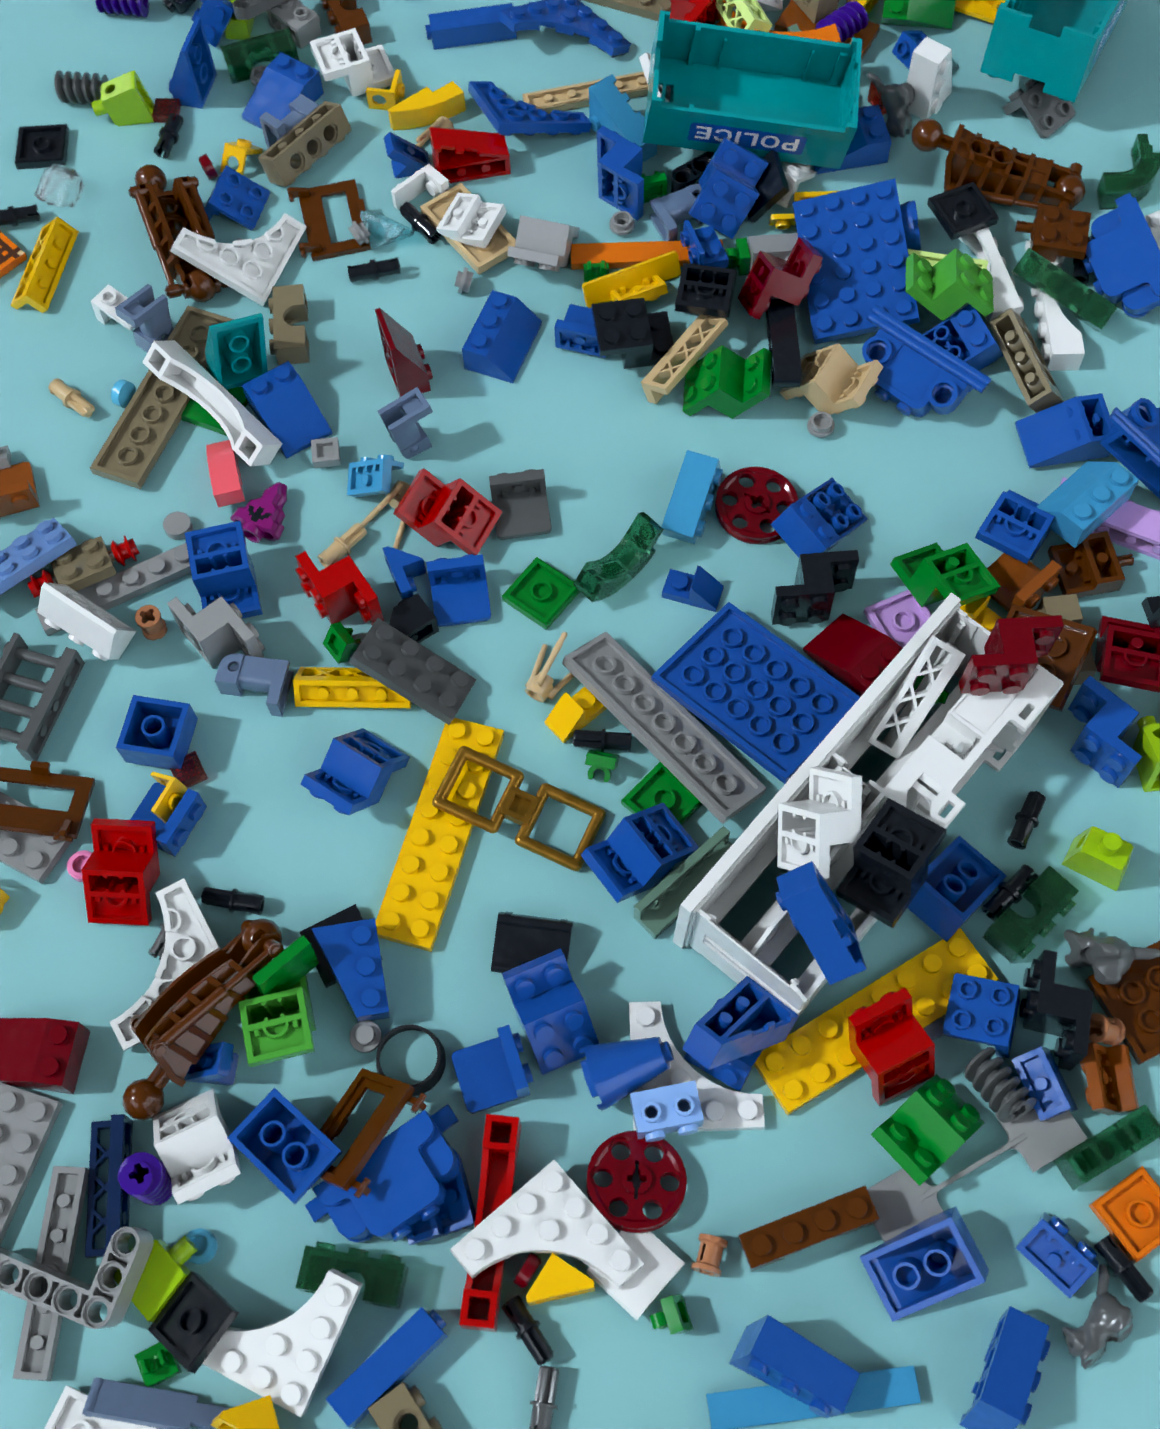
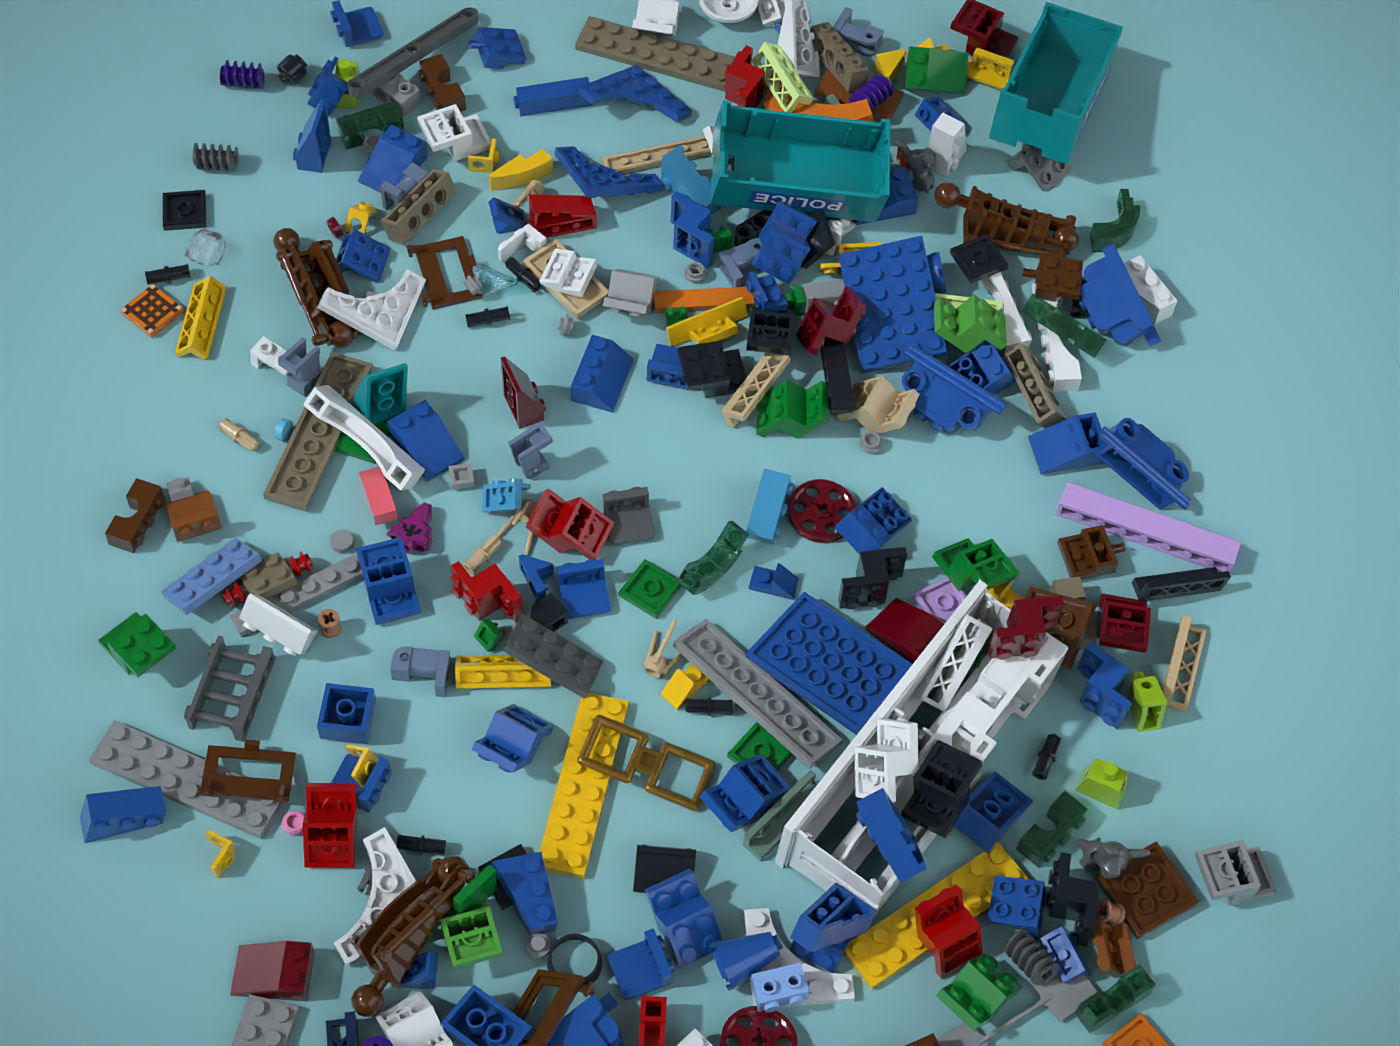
camera: 10 degrees left, 5 degrees down
(125, 101) = (256, 169): lime torso -> none
(164, 107) = (291, 175): clear red tile -> none
(168, 135) = (296, 199): black pin -> none
(191, 771) = (376, 742): clear red tile -> none
(217, 630) = (387, 628): light grey bracket -> none
(288, 307) = (418, 352): dark tan arch -> none
(603, 761) = (711, 723): green tile -> none
(1009, 892) = (1035, 813): black pin -> none
(1016, 526) = (1031, 523): blue bracket -> none
(1022, 582) = (1036, 566): dark orange bracket -> none
(1088, 499) = (1085, 501): dark azure slope -> none

